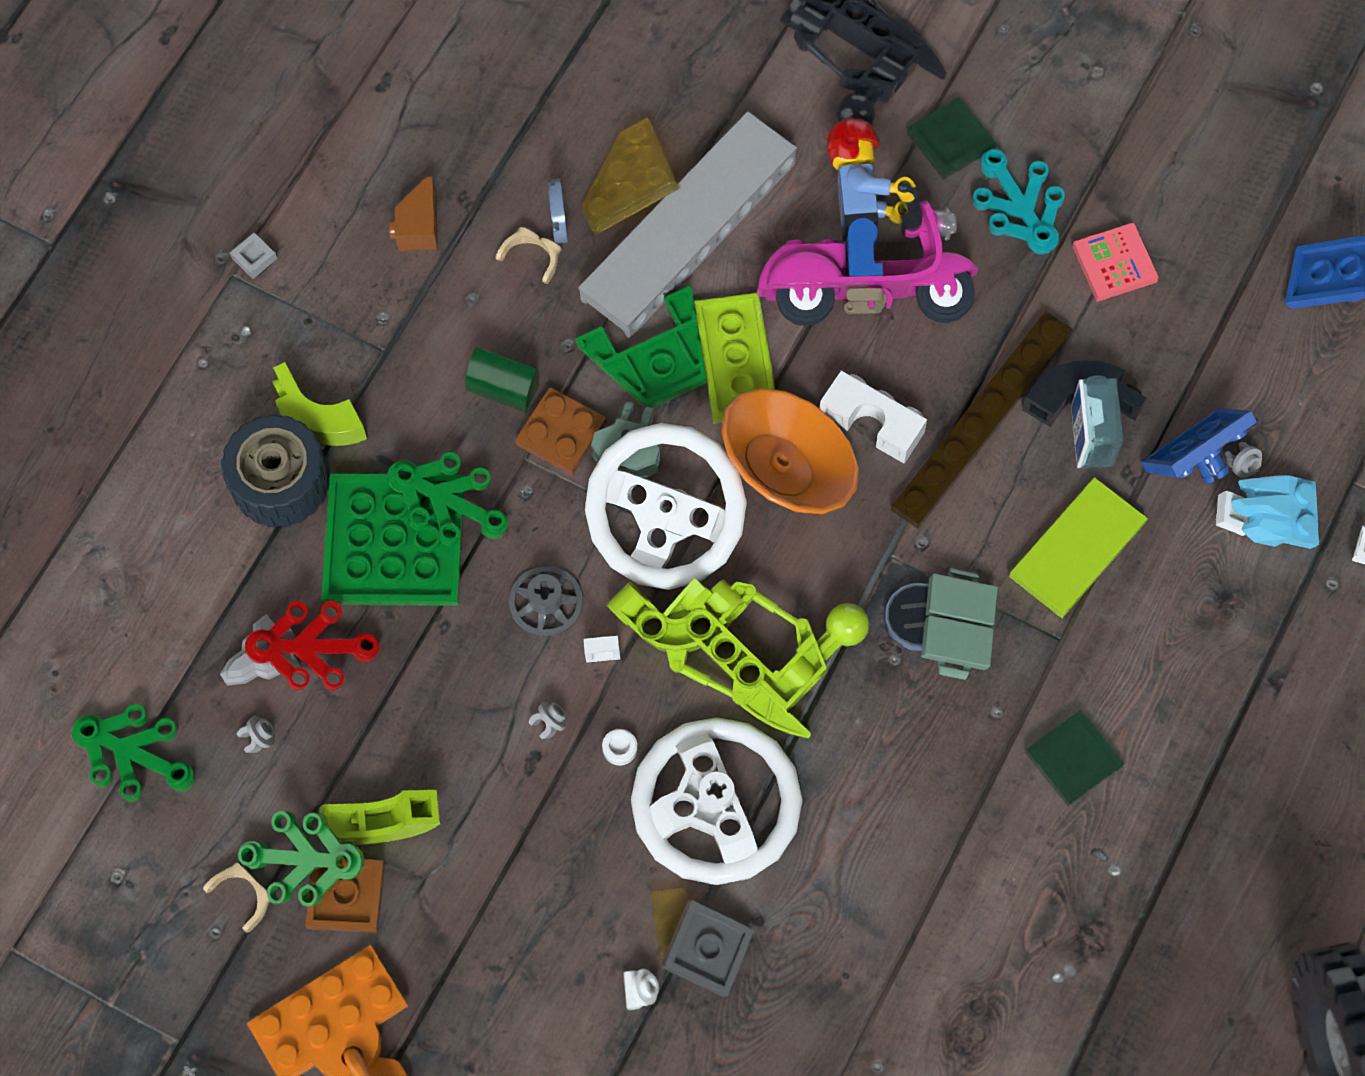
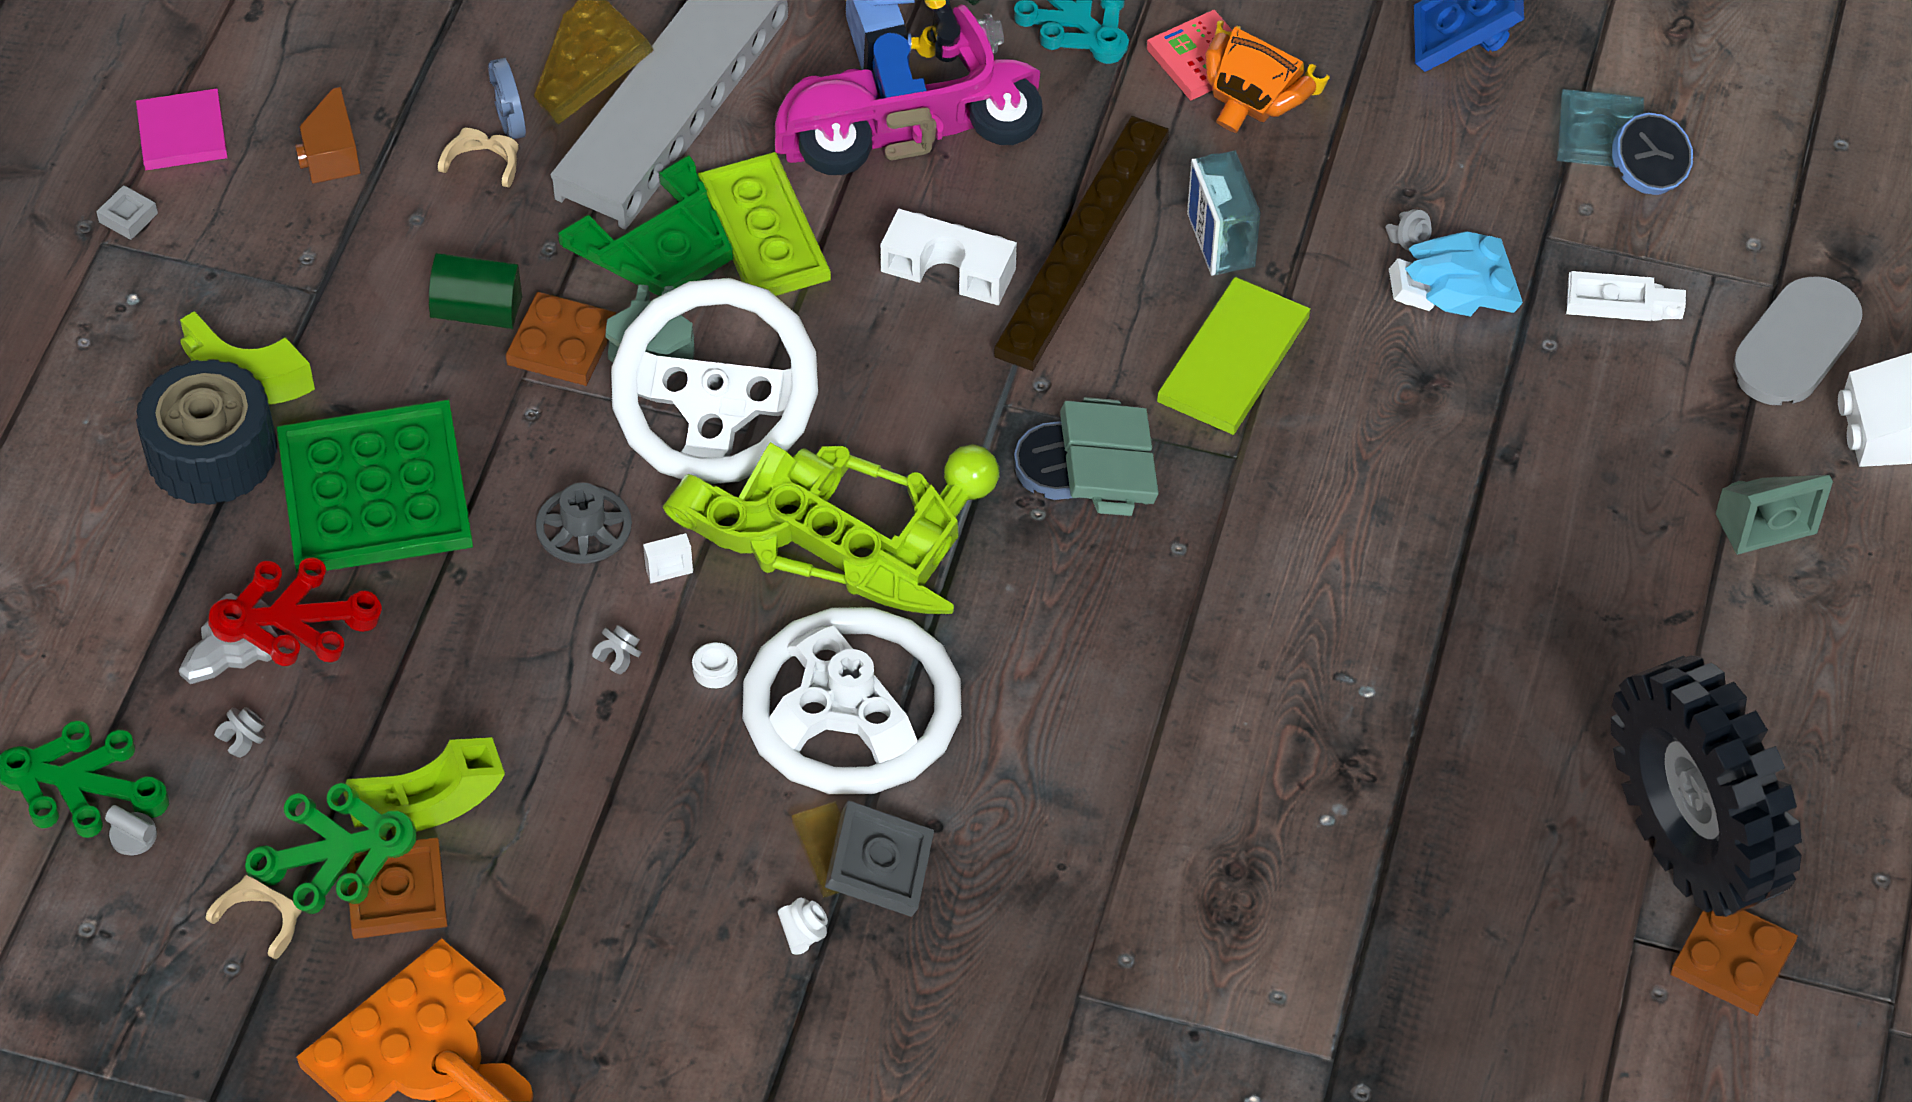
camera: 15 degrees left, 15 degrees down
(161, 804) = (130, 832): none -> light grey plate
(308, 185) = (181, 129): none -> dark pink tile
(443, 496) = (381, 412): green plant -> none
(790, 451) = (855, 300): orange dish -> none
(1059, 385) = (1165, 192): black arch -> none
(1074, 758) = (1286, 577): clear green tile -> none
(1150, 298) = (1255, 78): none -> orange torso
(1201, 446) = (1356, 220): blue plate -> none

